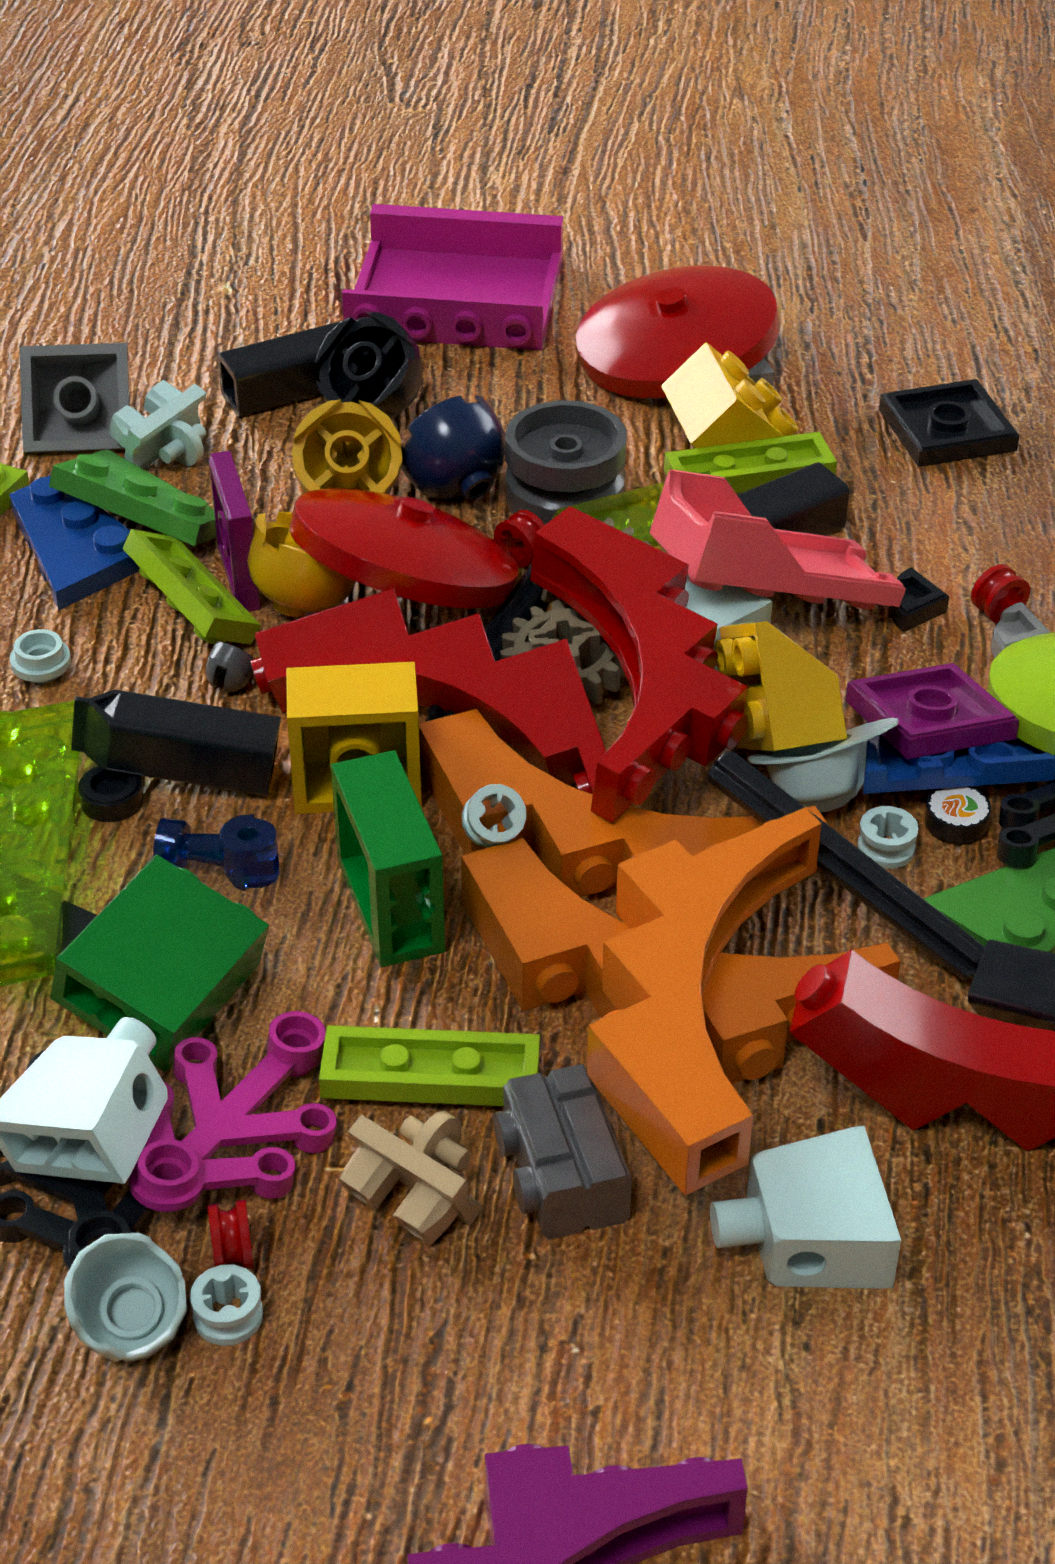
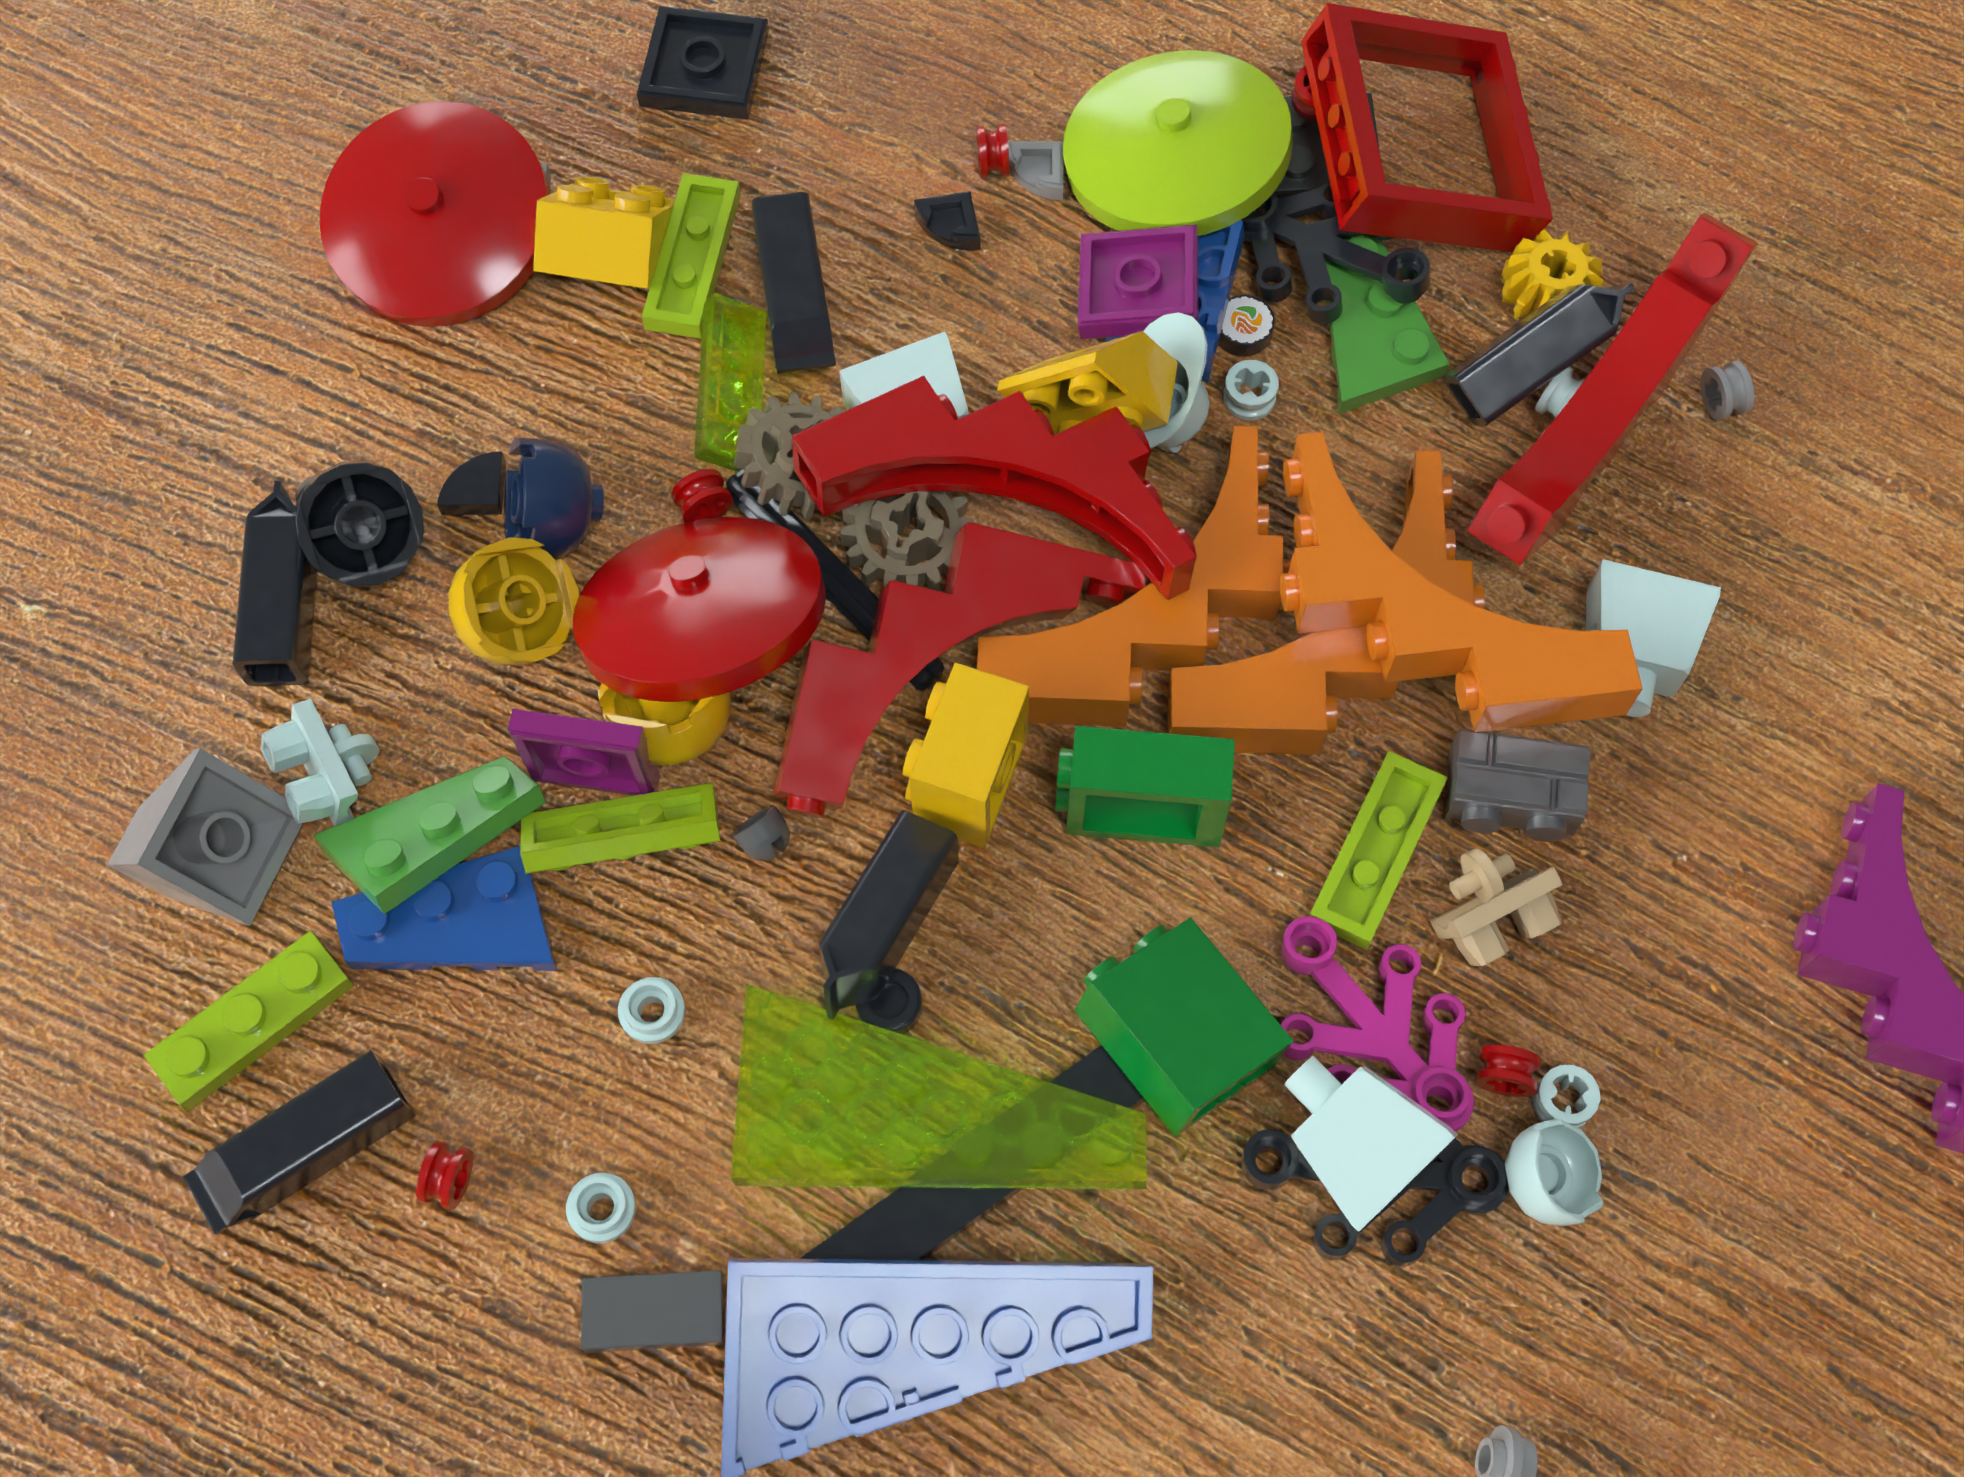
camera: 65 degrees left, 25 degrees up
(243, 848) = (1044, 911): clear blue leg -> none
(461, 275) = (188, 377): dark pink panel -> none
(475, 809) = (1128, 682): light aqua bush -> none
(563, 456) = (628, 410): dark grey wheel -> none
(726, 545) = (885, 306): coral piece -> none
(854, 870) = (1338, 427): black axle -> none

